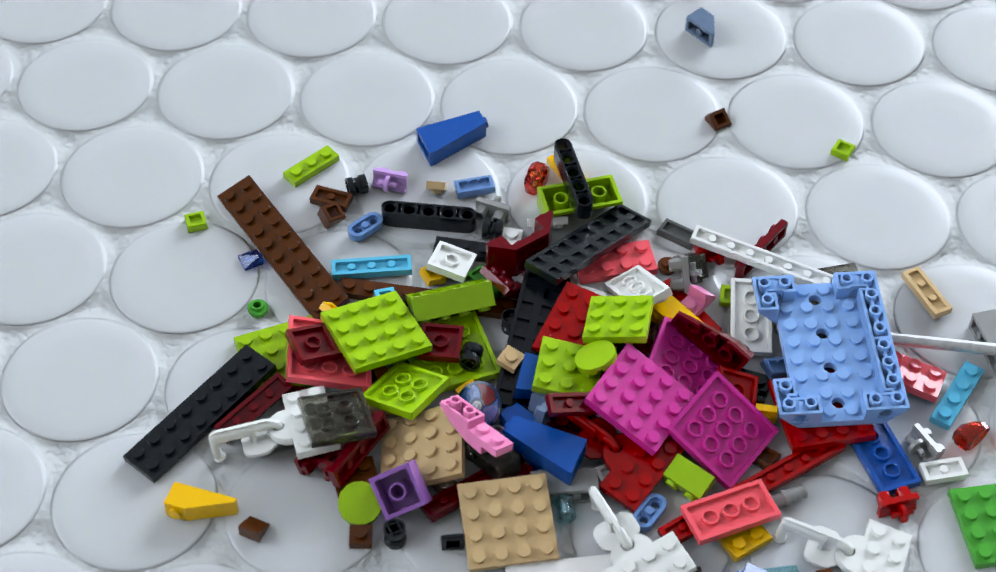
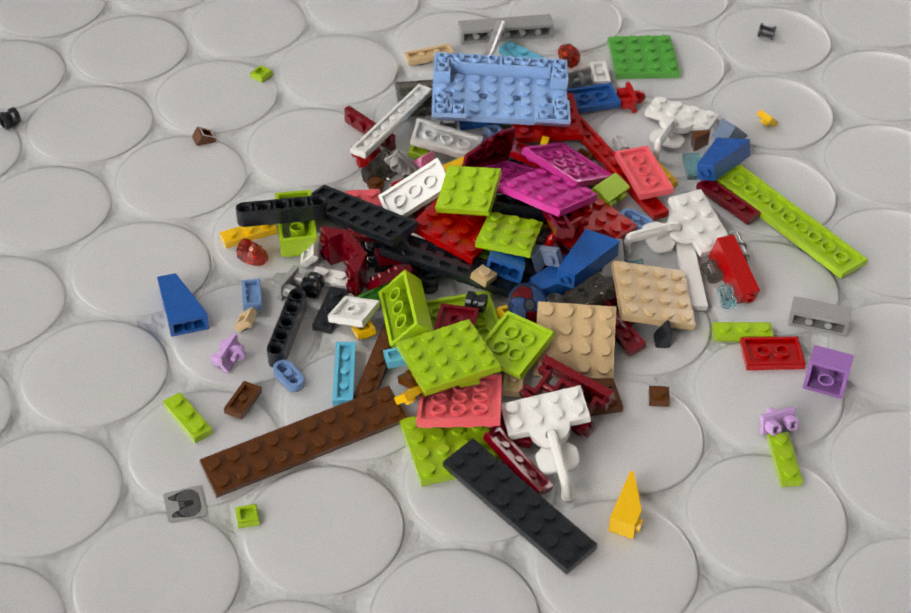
camera: 85 degrees left, 5 degrees down
(212, 181) = (185, 504): none -> sticker
(251, 259) = (312, 468): clear blue slope -> none
(253, 528) = (652, 469): reddish brown slope -> none
(257, 308) = (383, 462): bright green plate -> none
(312, 344) = (461, 400): dark red plate -> none
(331, 214) = (268, 400): reddish brown slope -> none
(336, 417) = (556, 381): clear smoke plate -> none
(357, 185) = (230, 378): black wheel -> none
(358, 504) = (629, 390): lime tile -> none
(394, 533) = (660, 369): black wheel -> none
(400, 489) = (627, 351): medium lavender brick -> none
(472, 427) = (575, 291): bright pink slope -> none
(595, 357) = (510, 206): lime tile -> none
(676, 233) = (338, 175): dark grey tile -> none
(701, 25) = (82, 127): sand blue slope -> none

